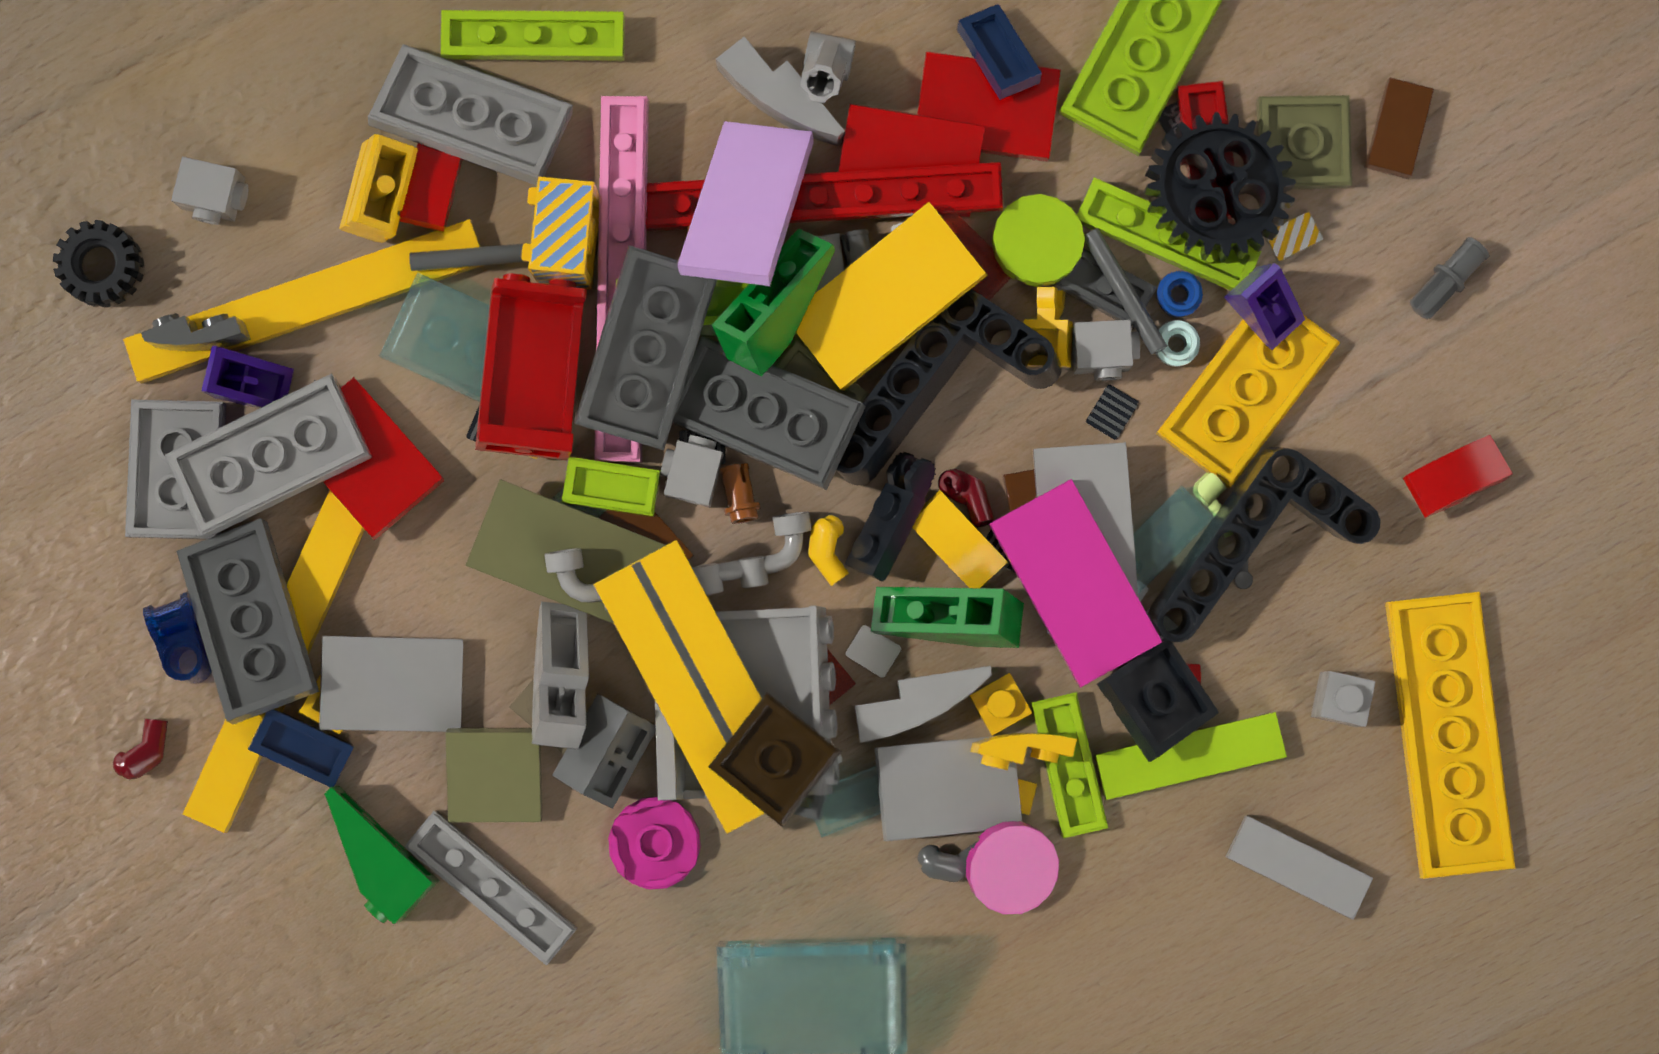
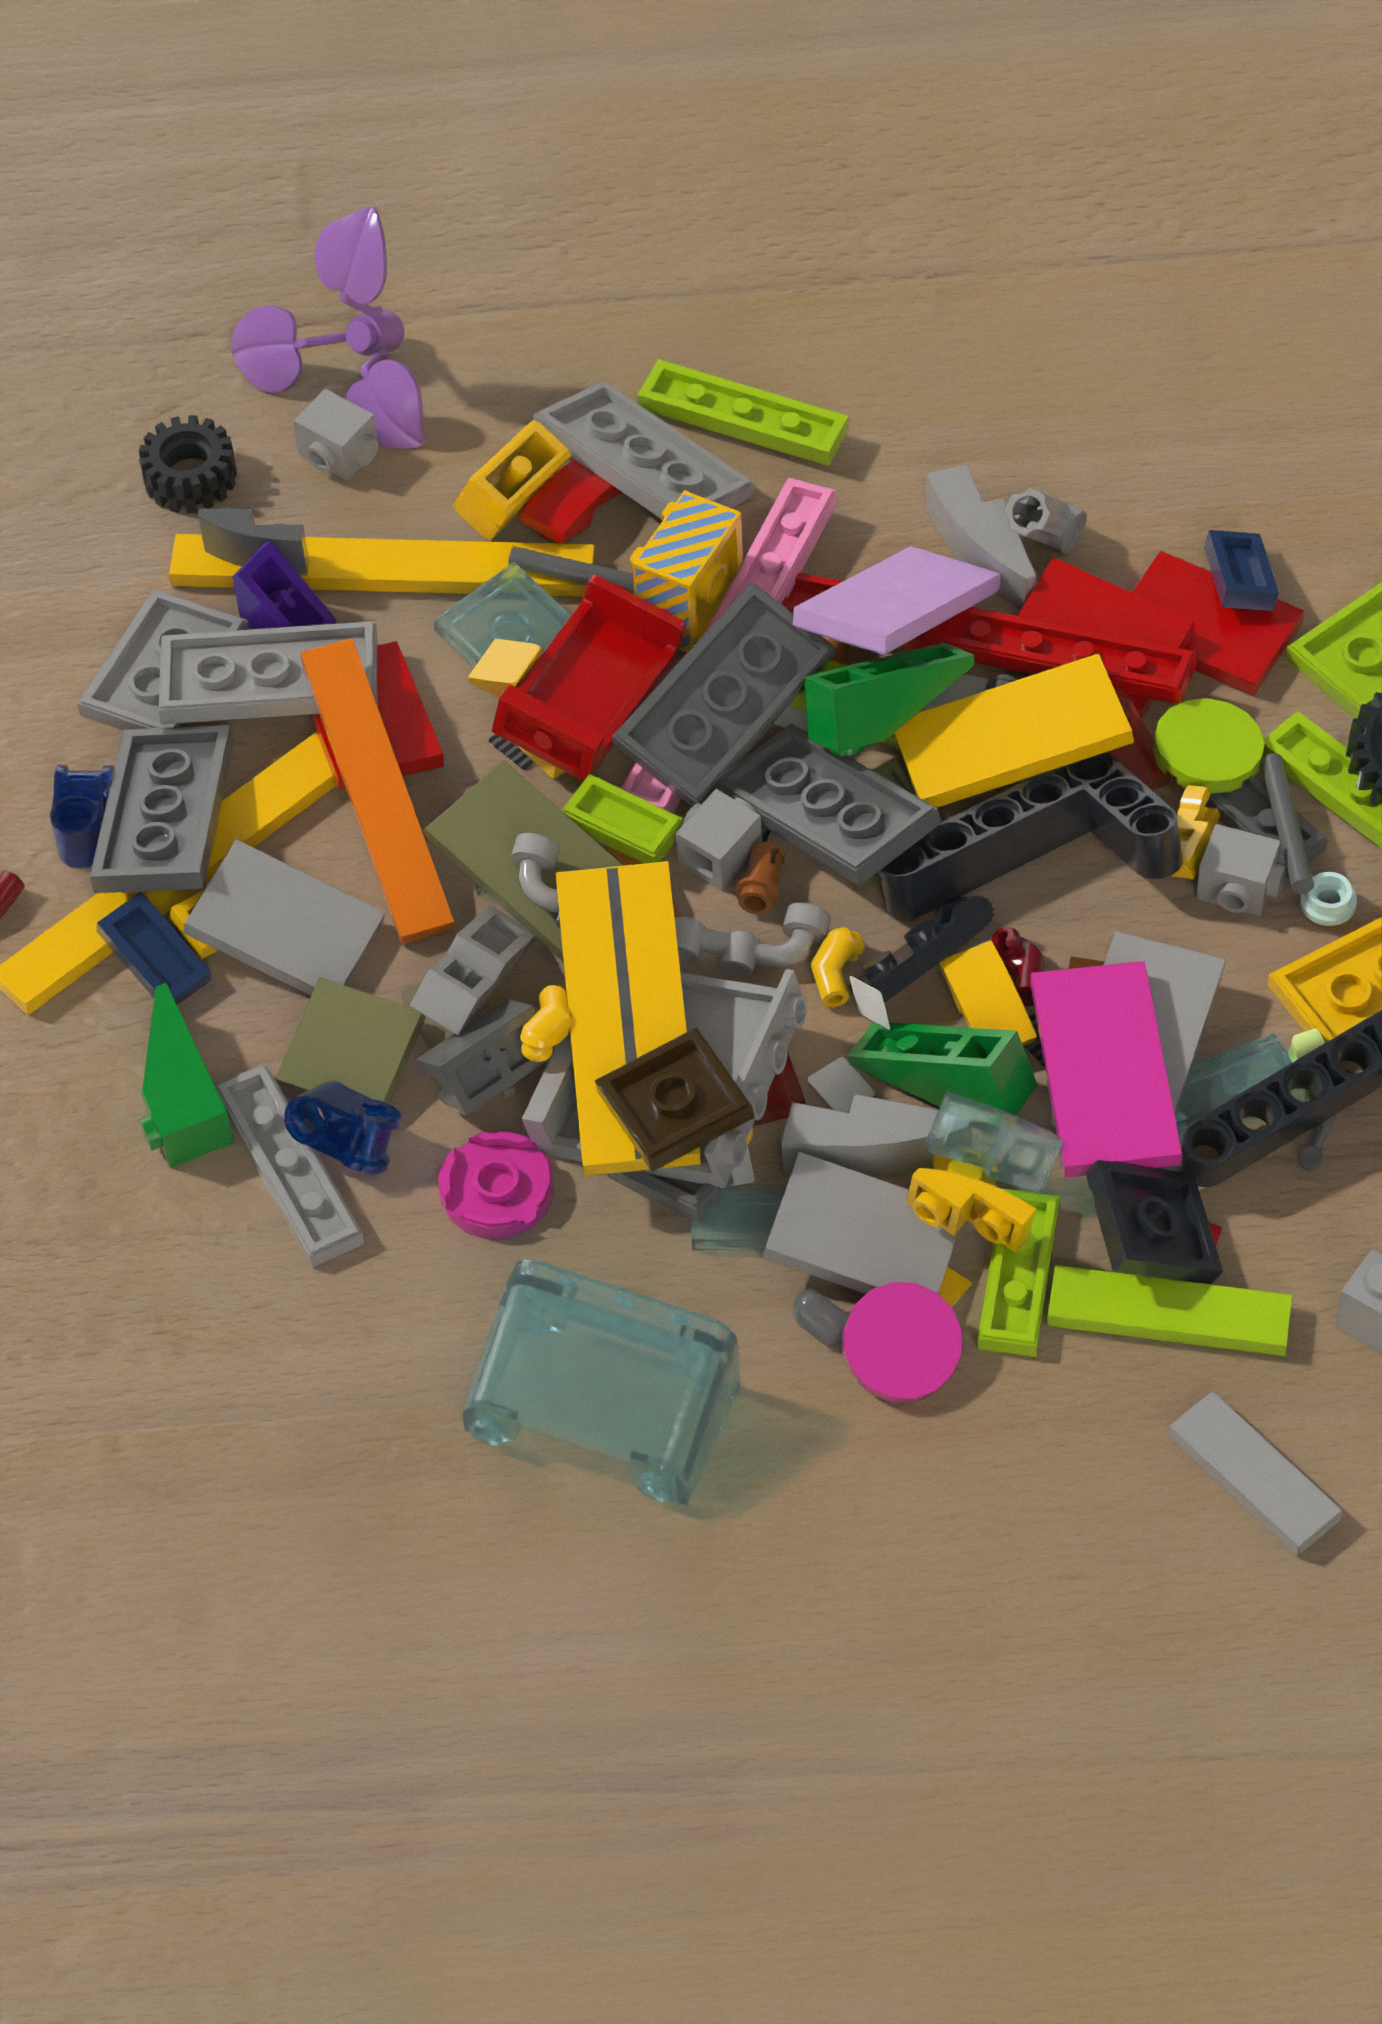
camera: 25 degrees right, 30 degrees down
(162, 55) = (353, 260): none -> medium lavender plant
(408, 538) = (377, 791): none -> orange tile
(457, 381) = (504, 664): none -> yellow slope
(519, 846) = (353, 1125): none -> clear blue piece
(647, 720) = (547, 1026): none -> yellow arm
(871, 581) = (870, 1002): none -> white sticker
(1029, 682) = (995, 1140): none -> clear light blue slope
(1112, 412) = (1228, 943): sticker -> none
(1189, 284) = (1356, 843): blue plate -> none

